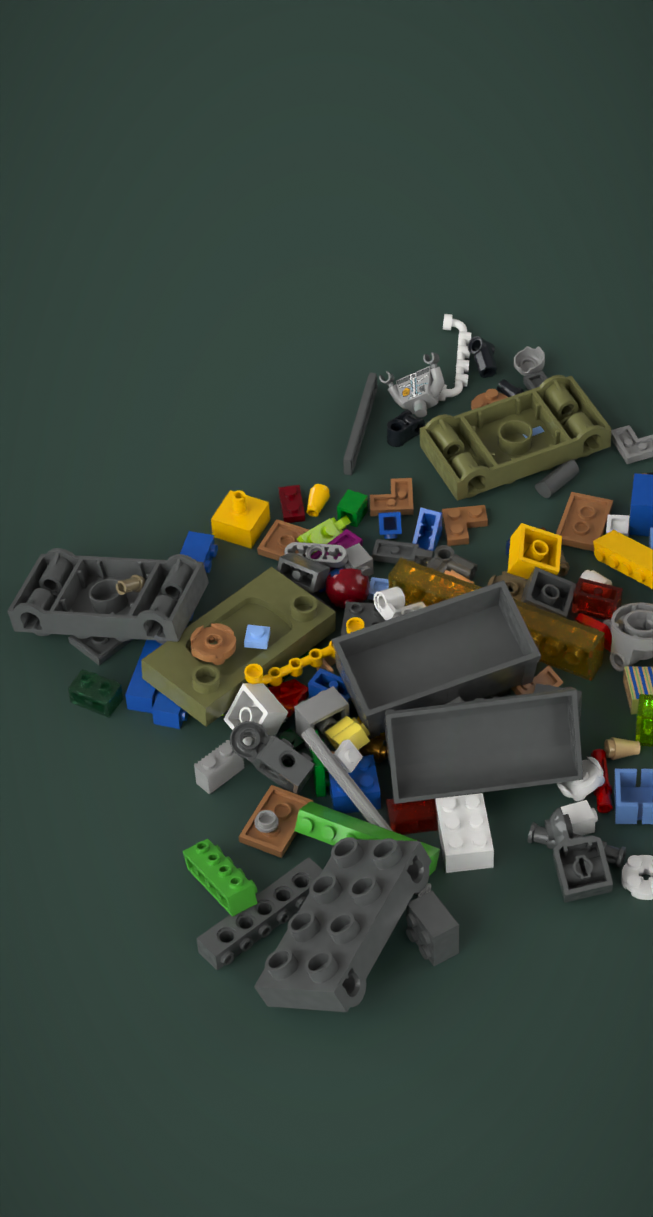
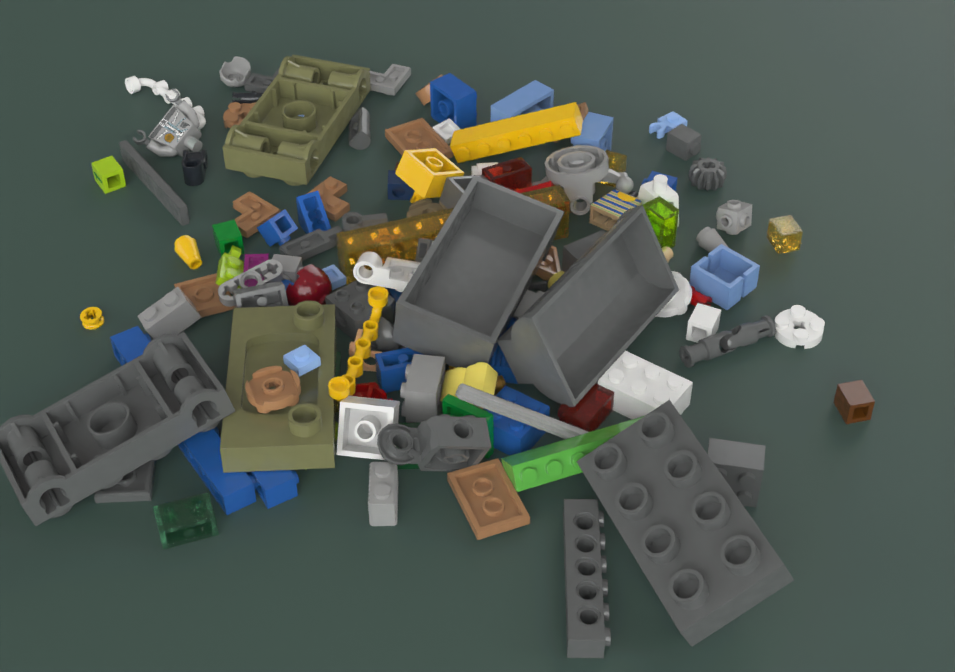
camera: 50 degrees left, 5 degrees down
(134, 583) = (133, 394): dark tan pin -> none
(205, 502) = (88, 313): none -> yellow bush
(220, 877) = (517, 573): bright green brick -> none
(240, 519) = (135, 296): yellow brick -> none
(240, 542) = (169, 314): none -> light grey brick
(266, 821) = (489, 500): light grey plate -> none
(291, 504) = (167, 269): dark red plate -> none
(339, 395) = (108, 174): none -> lime brick
(348, 755) = (497, 389): white plate -> none
(483, 355) = (195, 88): black piece -> none
(578, 860) = (762, 347): dark grey brick -> none
(595, 954) = (854, 401): none -> reddish brown brick

